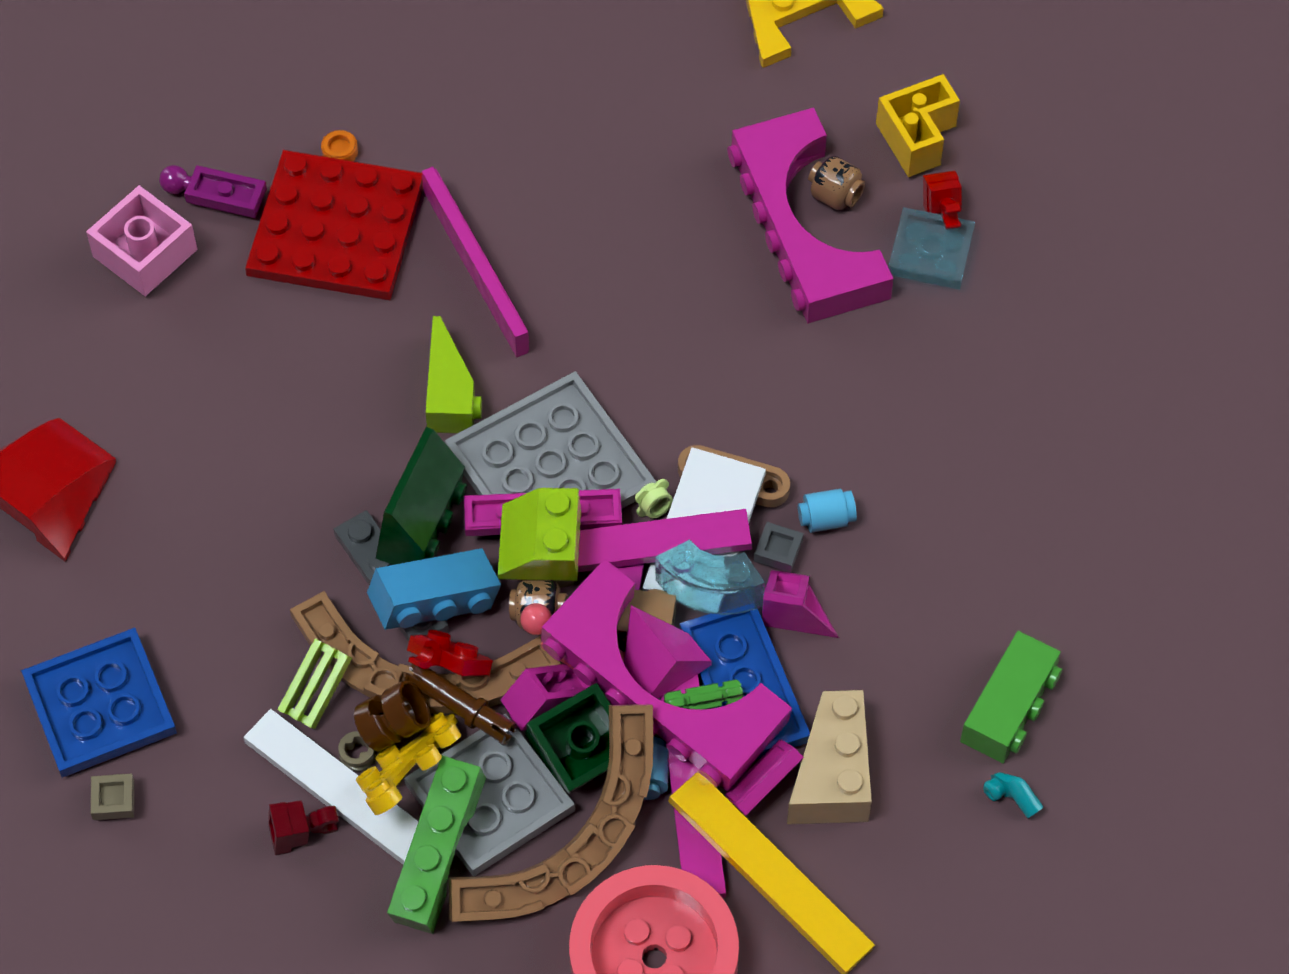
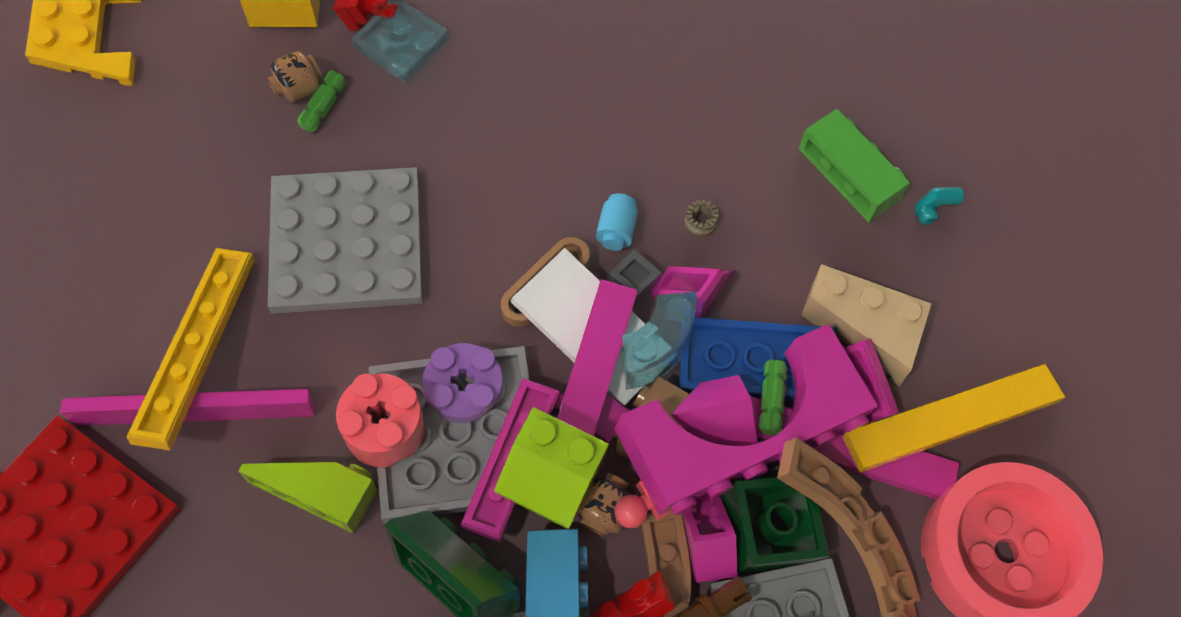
camera: 70 degrees left, 5 degrees up
(523, 394) = (371, 400): none -> coral brick
(527, 233) = (191, 350): none -> yellow tile
(599, 426) = (458, 360): none -> medium lavender plate
(654, 499) = (539, 356): yellowish green plate -> none
(695, 302) = (344, 240): none -> light grey plate
(821, 277) = (379, 129): dark pink arch -> none
(829, 217) = (321, 101): none -> bright green axle
(882, 575) = (705, 208): none -> dark tan bush

